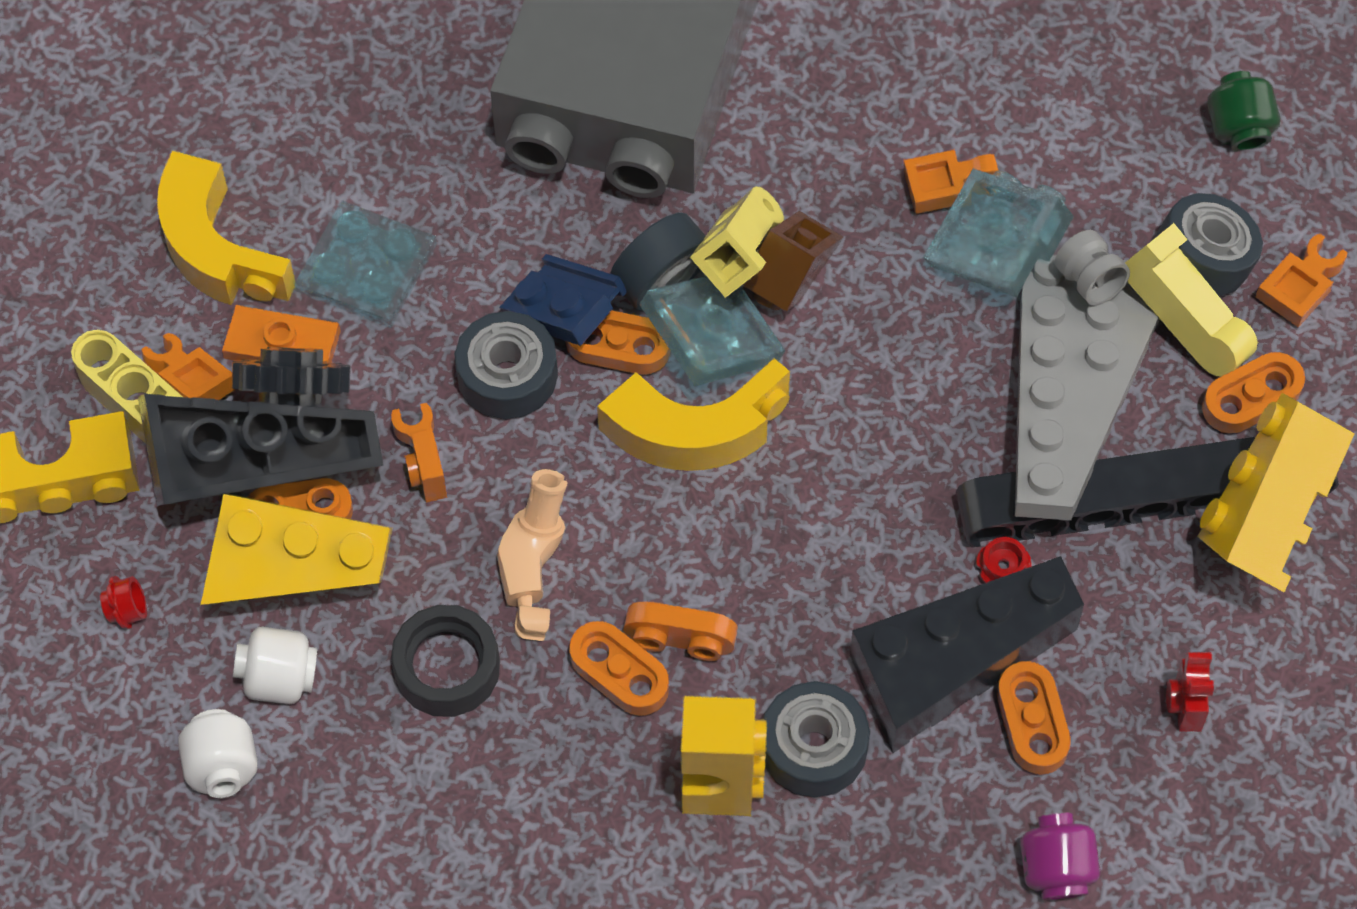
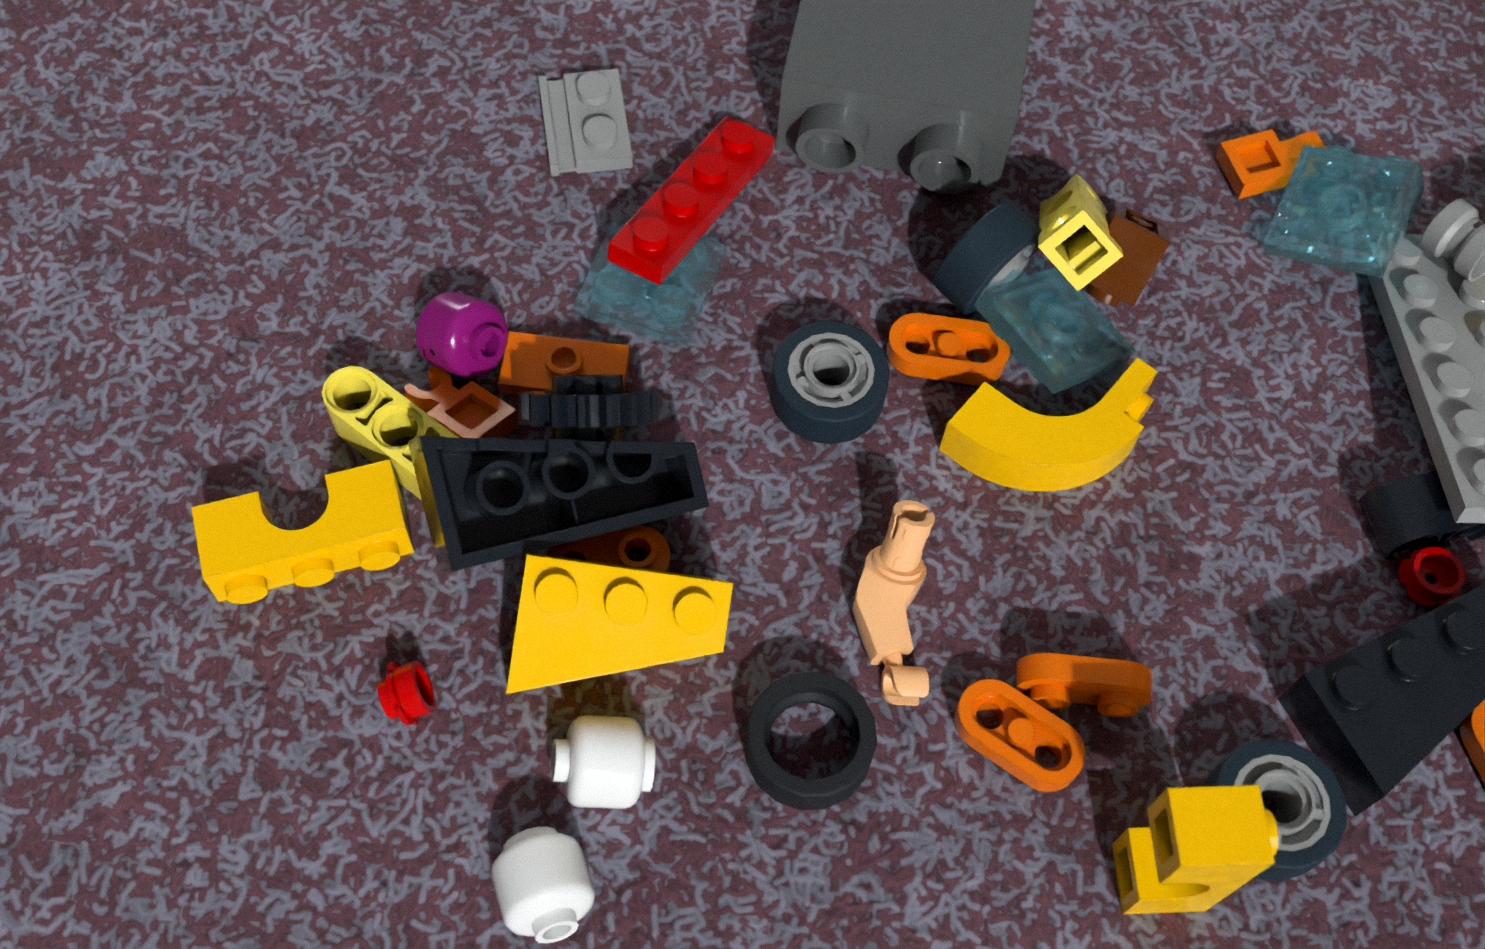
camera: 10 degrees left, 0 degrees up
(187, 207) = (444, 223): yellow arch -> none
(192, 301) = (461, 334): none -> magenta head
(324, 112) = (585, 122): none -> light grey plate
(409, 192) = (690, 200): none -> red plate
(424, 464) = (753, 500): orange plate -> none
(566, 298) = (888, 303): dark blue plate -> none

